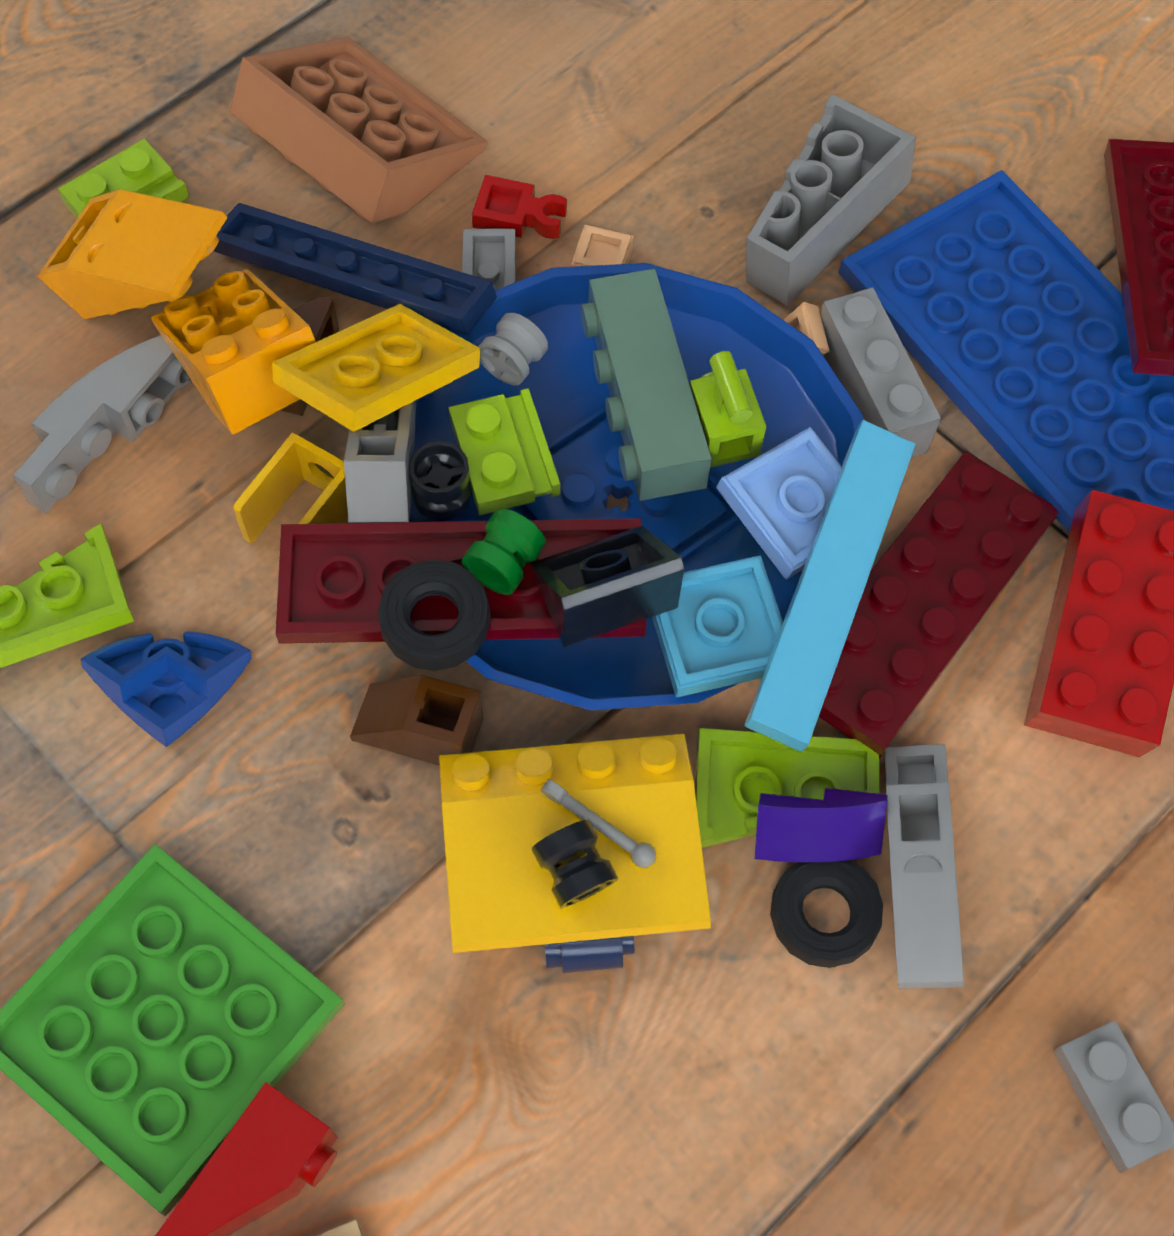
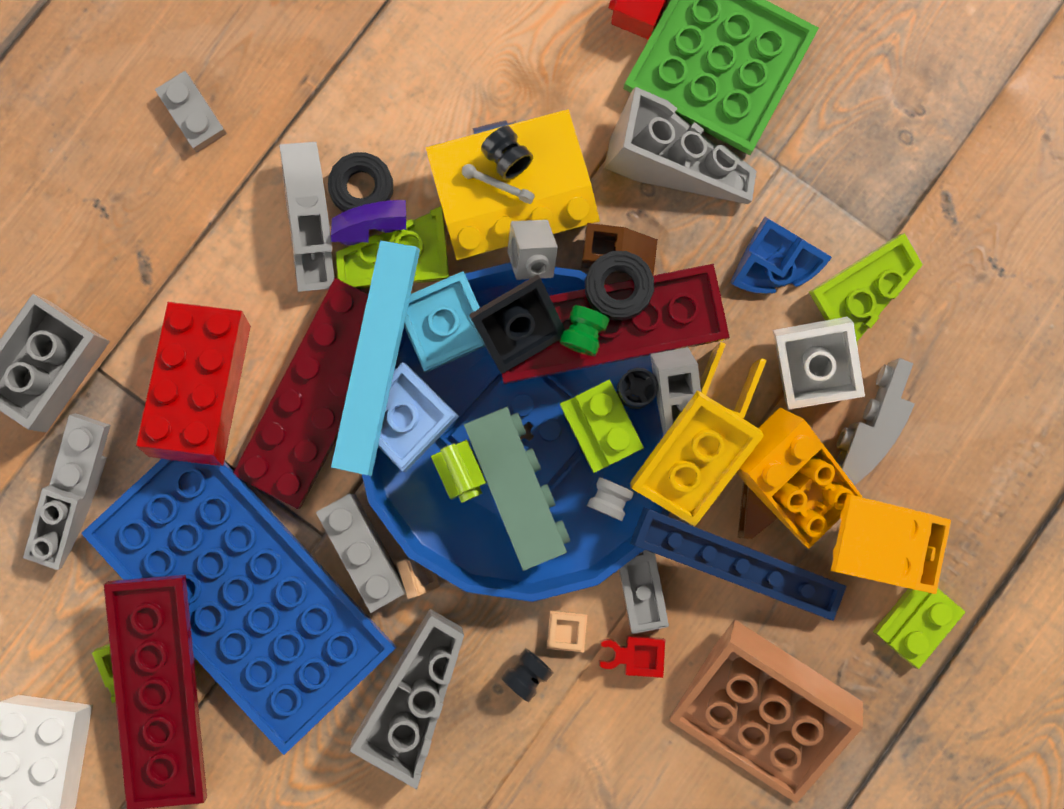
camera: 170 degrees right, 20 degrees up
(153, 499) = (819, 363): none -> white brick
(296, 877) = (666, 151): none -> light grey wedge
(560, 707) = (532, 249): none -> light grey brick
(666, 207) = (527, 675): none -> black wheel

